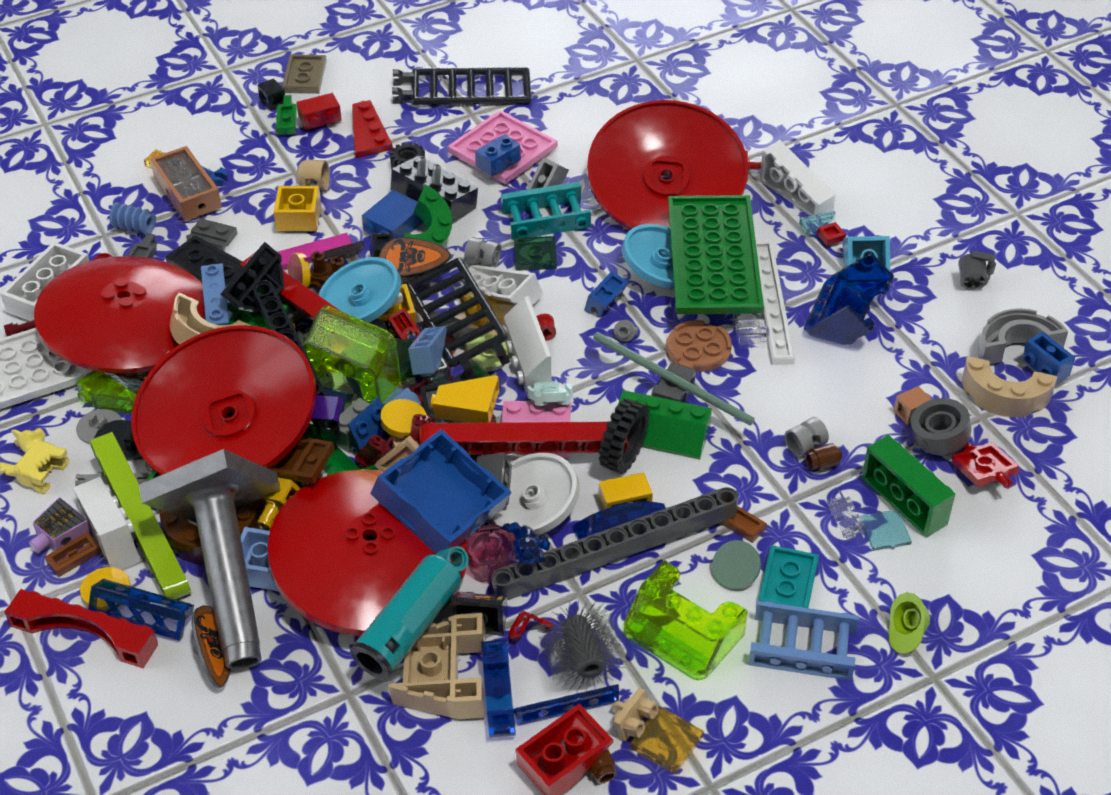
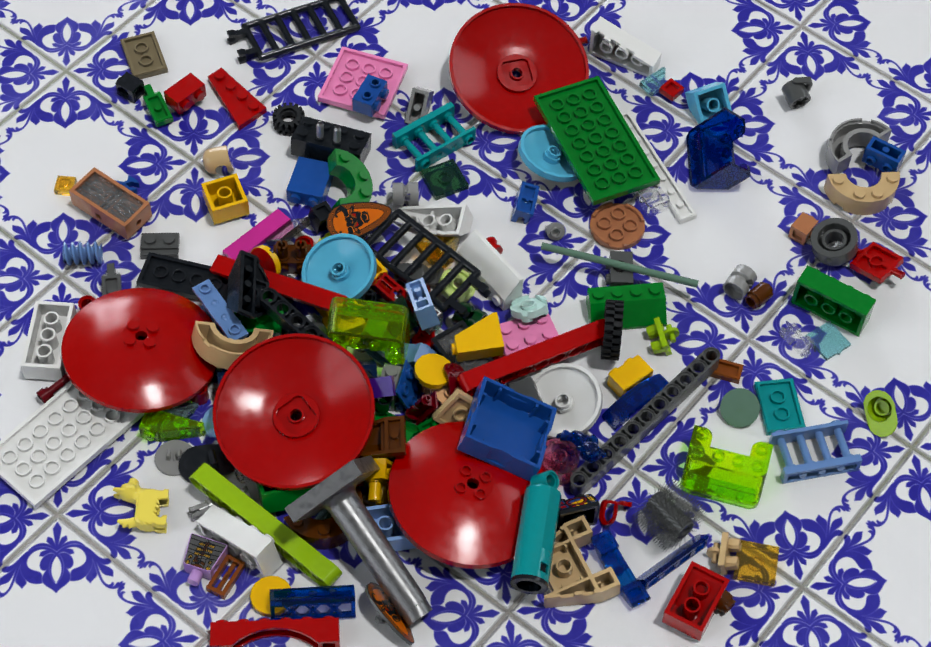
camera: 25 degrees left, 10 degrees up
(688, 465) = (662, 344): none -> lime hips

